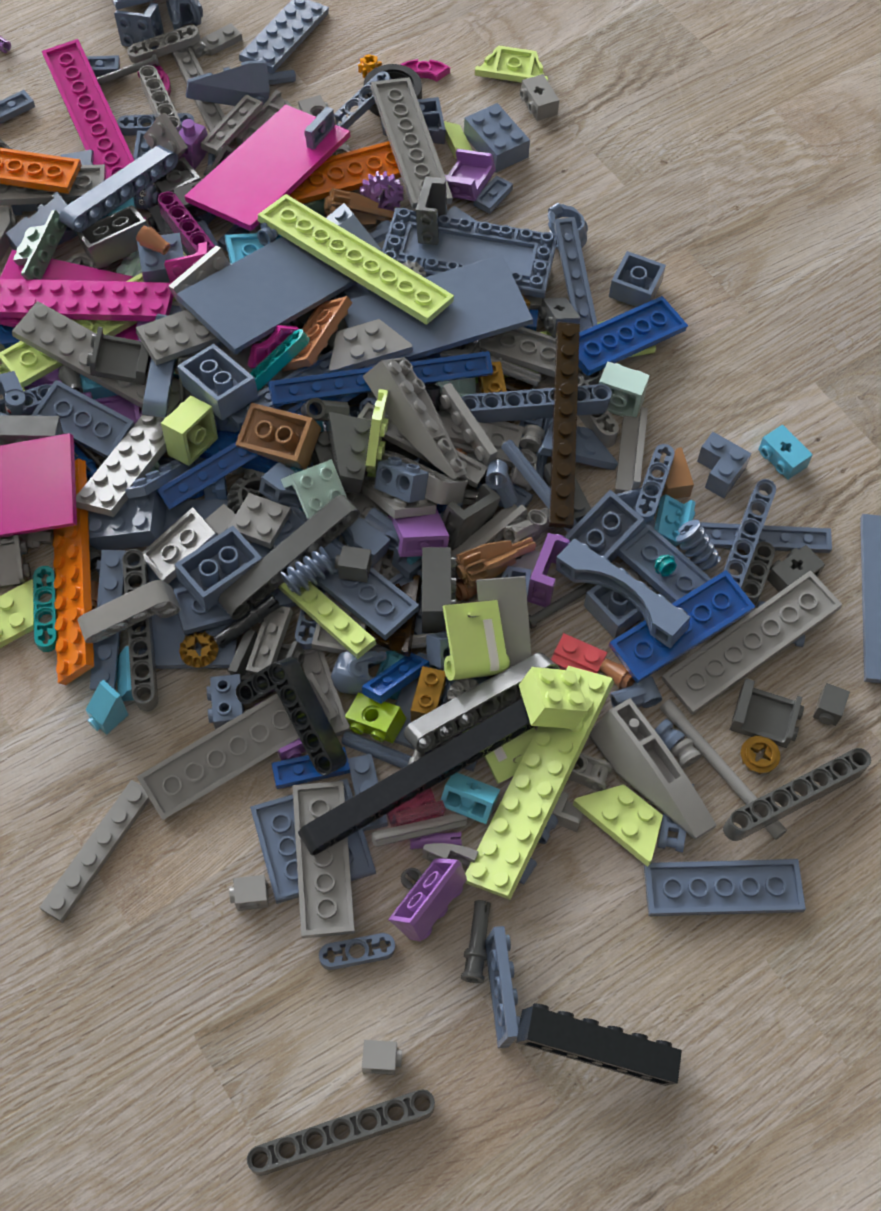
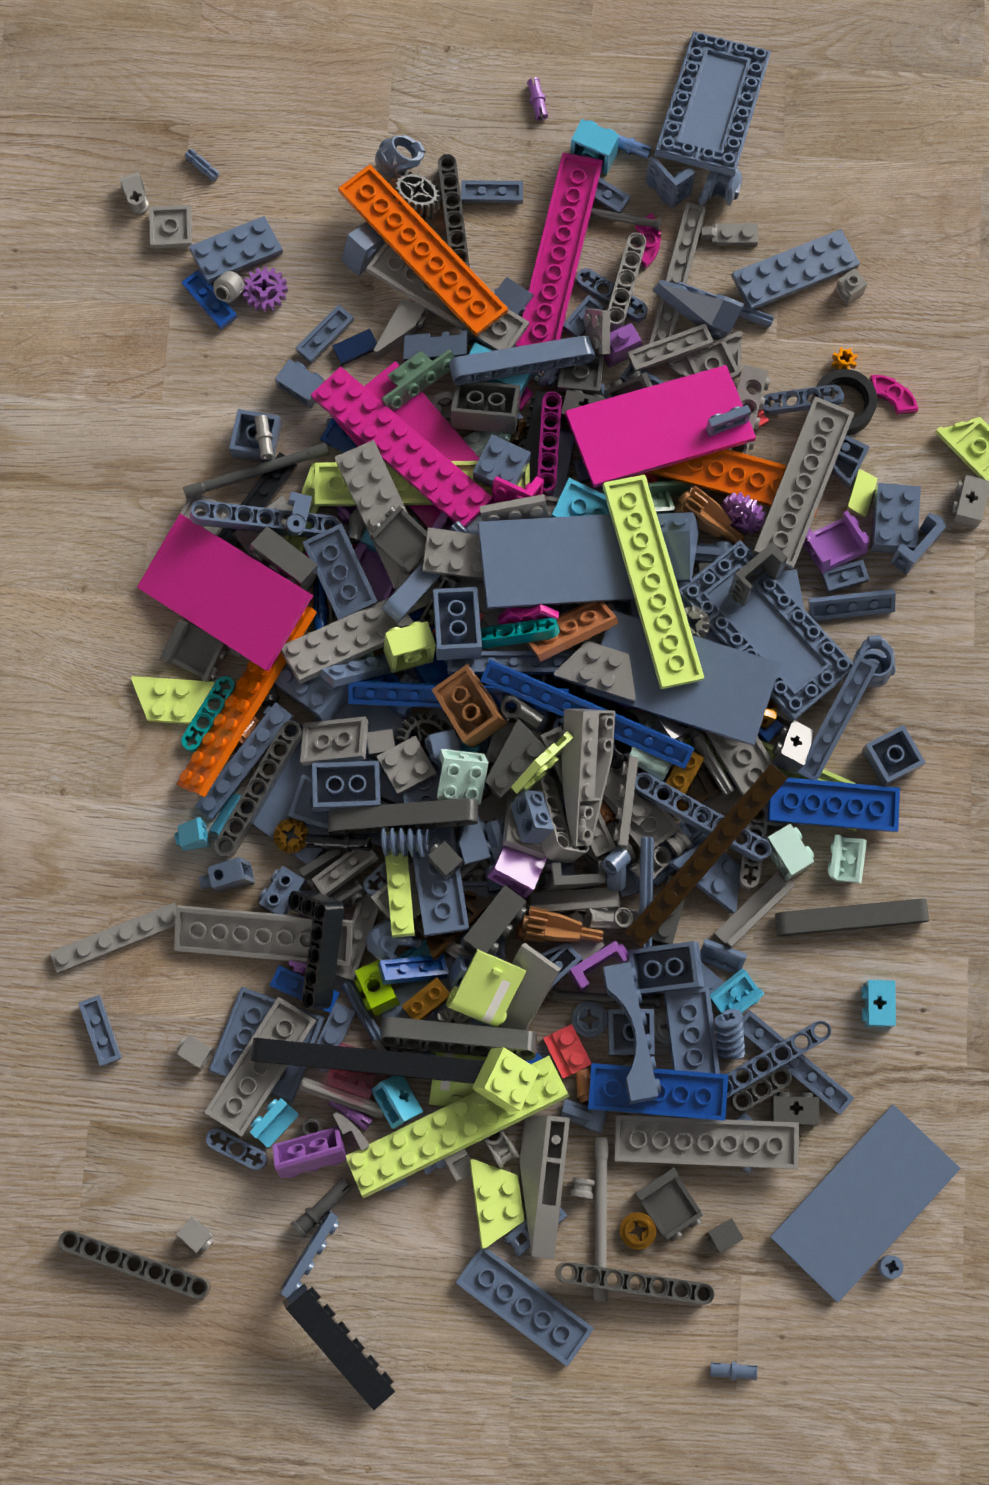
camera: 40 degrees right, 15 degrees up
(61, 29) = (595, 143): none -> medium azure brick
(92, 29) = (634, 147): none -> medium blue pin
(128, 610) = (256, 775): light grey beam -> none
(143, 941) = (100, 1030): none -> sand blue plate
(152, 240) = (498, 450): nougat cone -> none
(163, 43) = (678, 209): light grey beam -> none
(165, 719) = (228, 875): none -> sand blue torso
(266, 234) = (600, 504): sand blue plate -> none
(334, 21) = (850, 286): none -> light grey brick
(375, 899) = (274, 1123): none -> medium azure bracket
(519, 204) = (852, 605): none -> sand blue plate
(528, 145) = (906, 559): none -> sand blue panel
(574, 611) = (596, 1011): none -> sand blue gear
(654, 482) = (740, 953): sand blue beam -> none
(665, 565) = (687, 1033): teal plate -> none
(669, 371) = (847, 859): none -> light aqua bracket
(669, 735) = (580, 1164): sand blue wheel -> none
(679, 481) = (769, 959): medium nougat slope -> none
(709, 406) = (851, 917): none -> dark grey beam
(725, 461) = (823, 978): sand blue brick -> none

